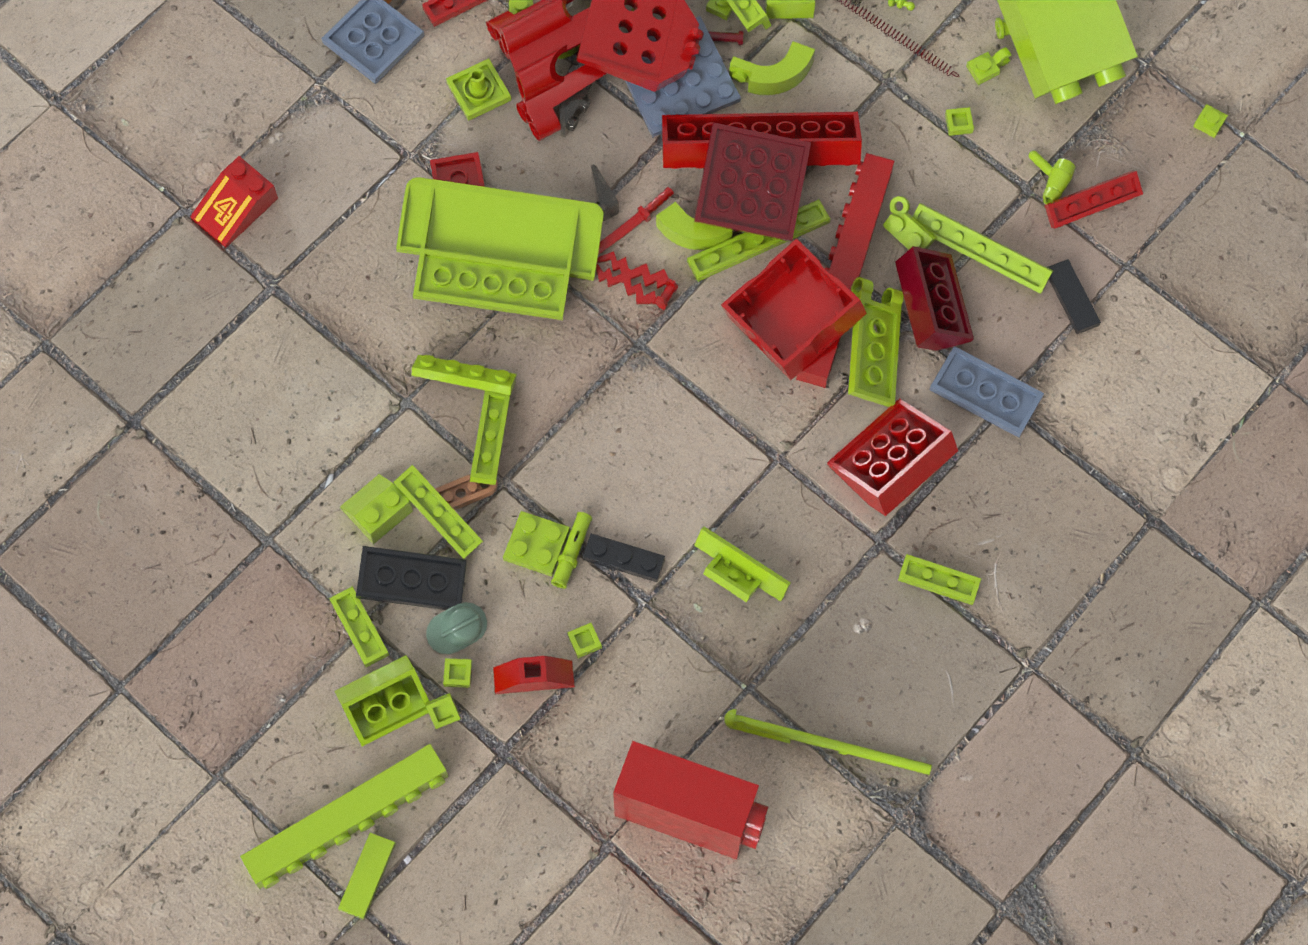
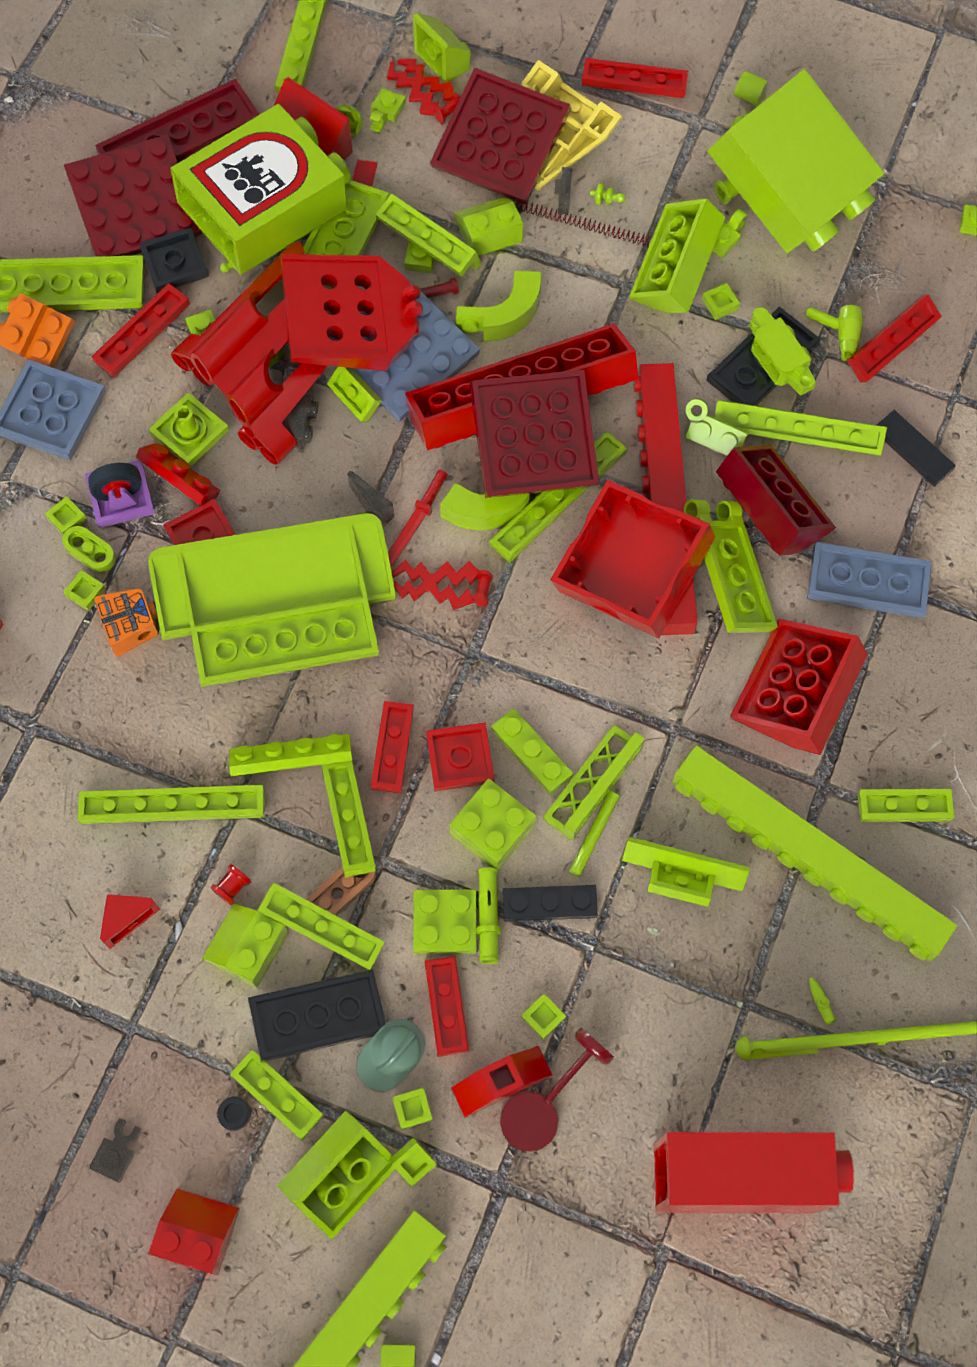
camera: 20 degrees left, 0 degrees up
(222, 629) = (114, 1156): none -> clear smoke plate
(261, 703) = (194, 1231): none -> red slope
(292, 454) = (123, 916): none -> red slope
(322, 630) = (234, 1113): none -> black tile
(350, 192) = (84, 589): none -> lime plate
(356, 128) = (65, 515): none -> lime plate
(358, 382) = (171, 804): none -> lime plate
(365, 162) = (90, 550): none -> lime plate
(374, 226) = (127, 619): none -> orange torso
(381, 458) = (230, 884): none -> red bush
(405, 123) = (119, 493): none -> plate
(456, 122) = (177, 473): none -> red plate
(513, 607) = (446, 1006): none -> red tile
(546, 395) = (392, 747): none -> red plate
(546, 713) = (530, 1118): none -> dark red piece
(596, 421) = (459, 756): none -> red plate
(601, 481) = (492, 824): none -> lime brick
(623, 102) = (354, 392): none -> lime plate
(656, 436) = (532, 751): none -> lime plate
(678, 518) = (594, 833): none -> lime bar
(699, 481) = (604, 783): none -> lime fence
(808, 706) = (822, 1002): none -> lime helmet
(847, 590) = (814, 854): none -> lime brick
(936, 72) = (677, 256): none -> lime slope
(976, 181) = (743, 377): none -> black tile
(988, 180) = (780, 352): none -> lime hinge

